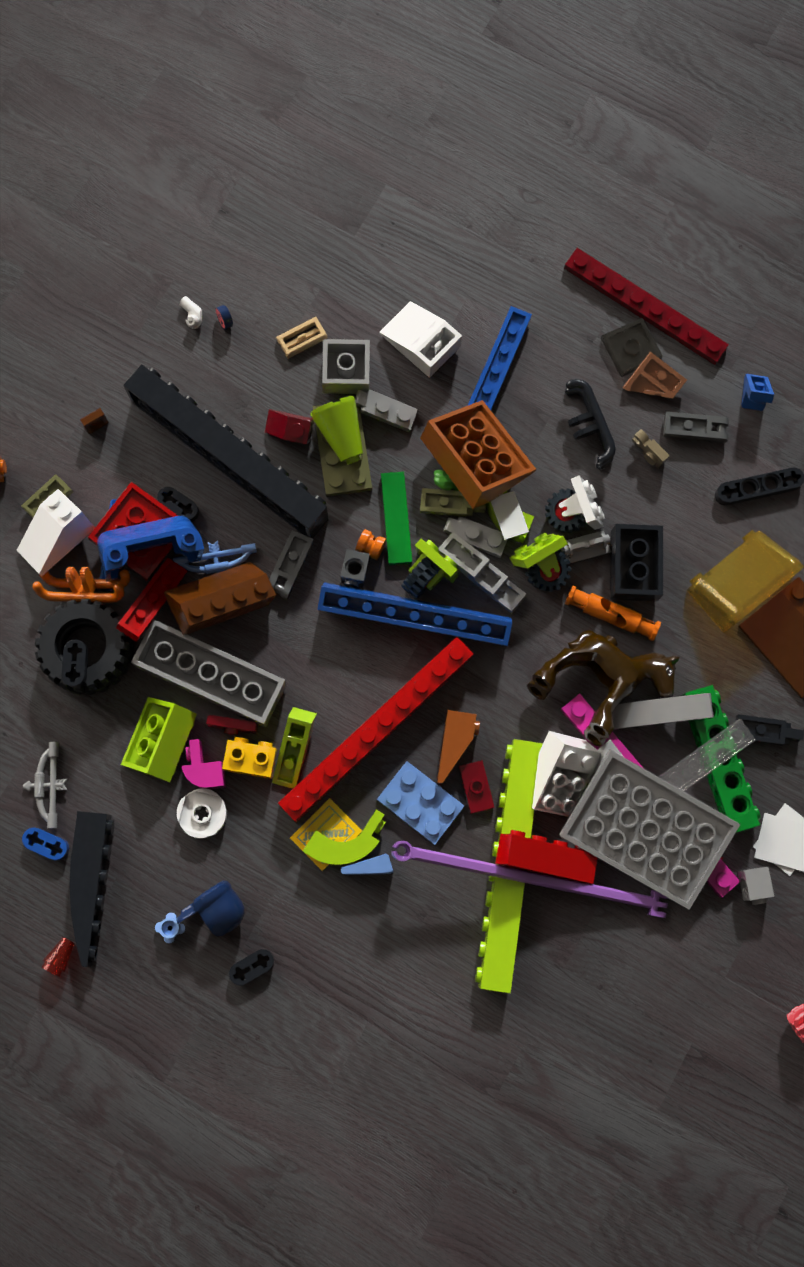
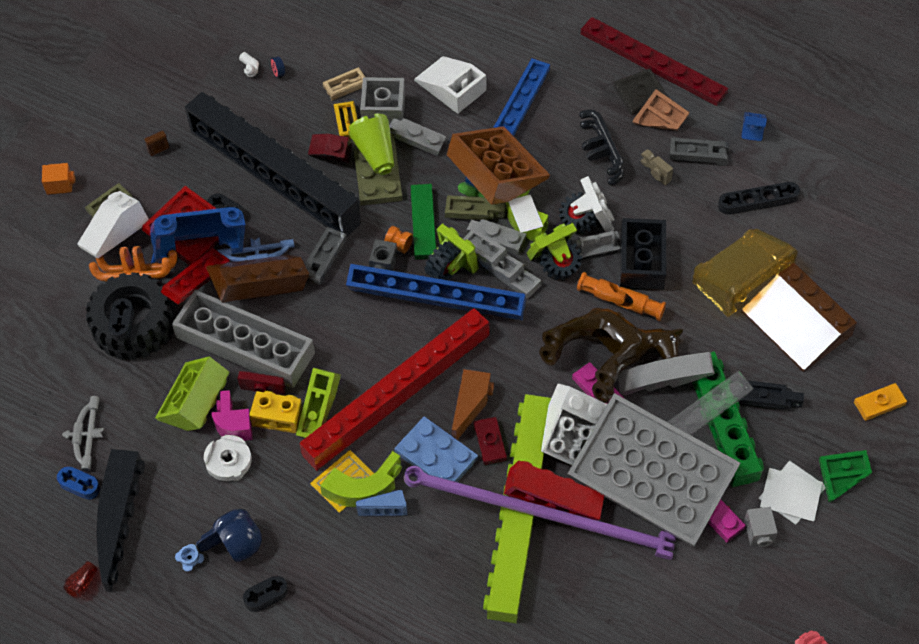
camera: 10 degrees right, 20 degrees down
(309, 405) = (344, 106): none -> yellow tile

